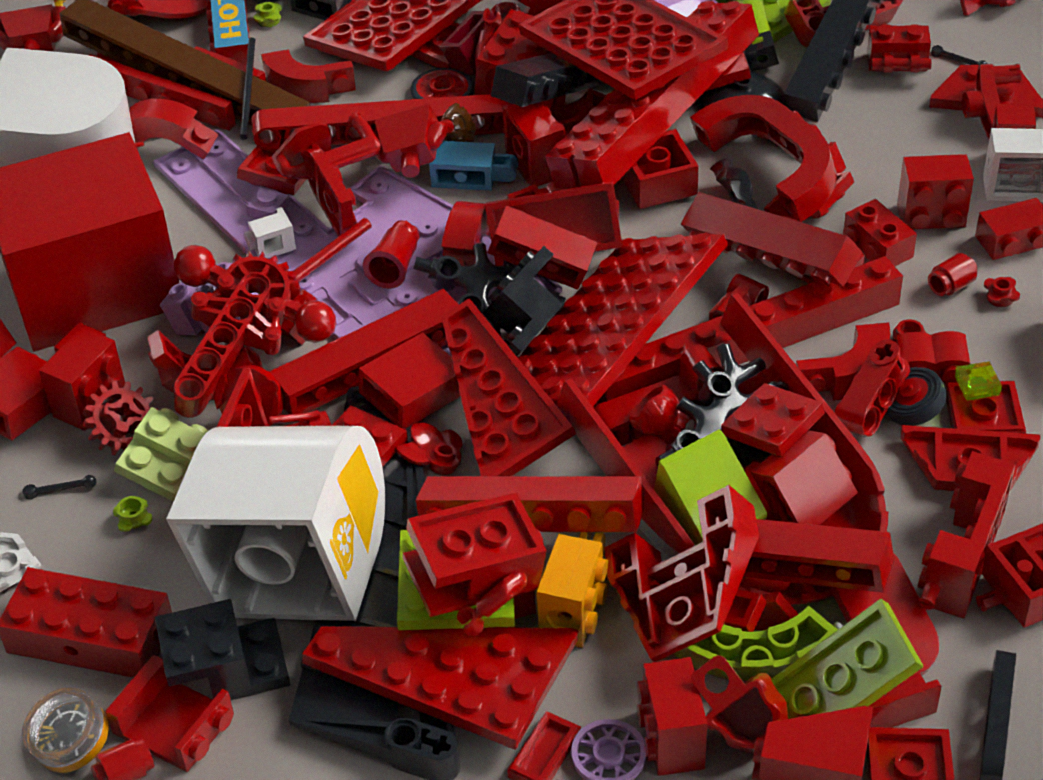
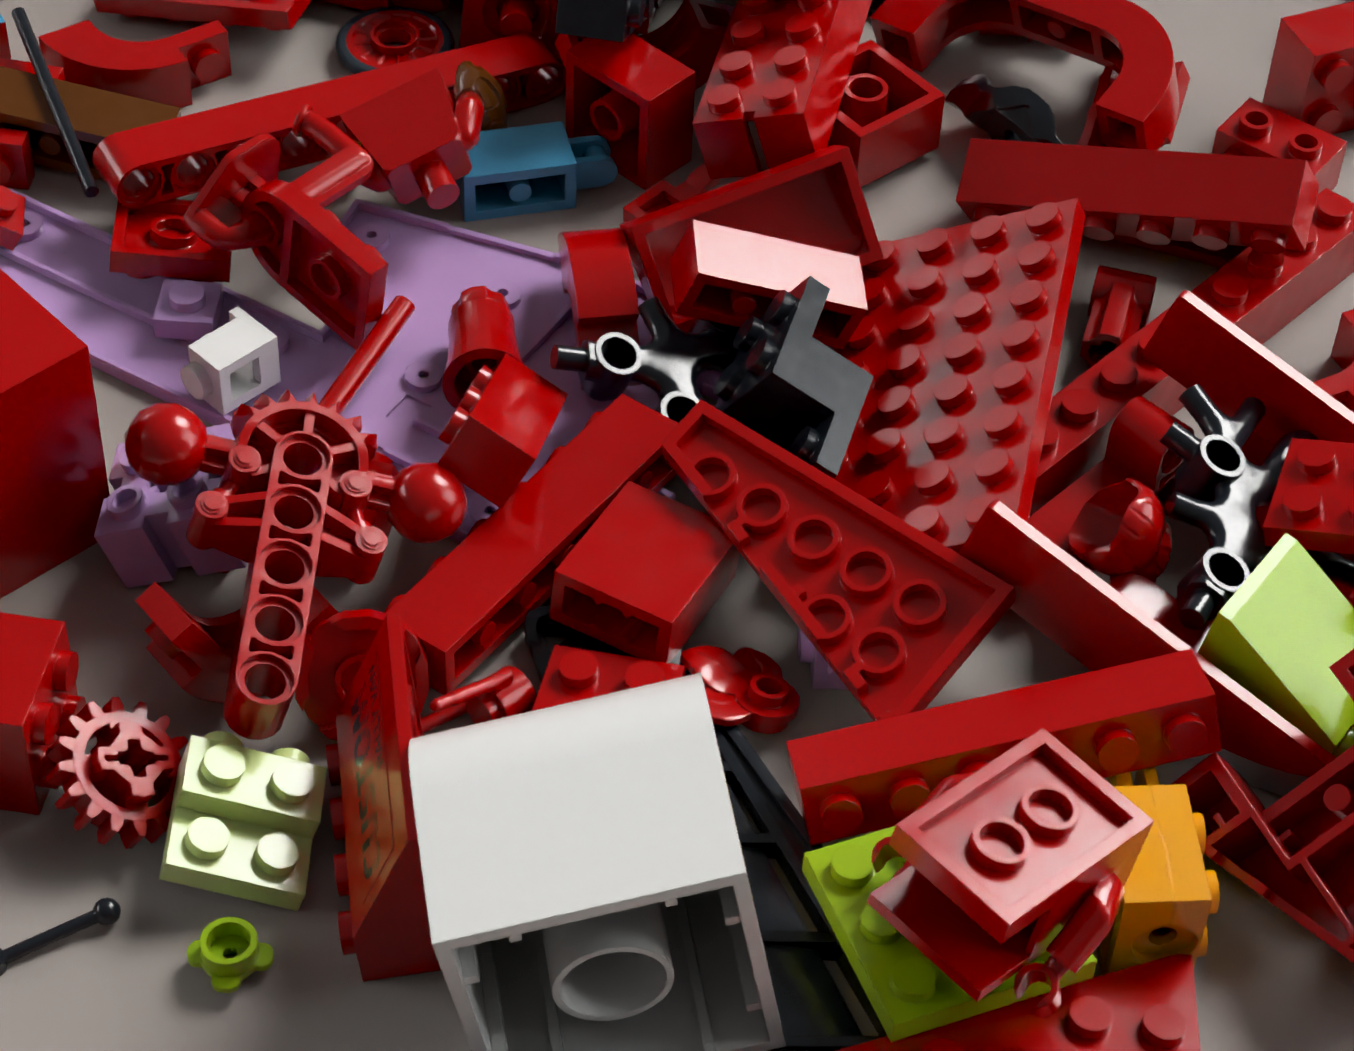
camera: 25 degrees left, 0 degrees up
(370, 293) = (500, 428): none -> red brick

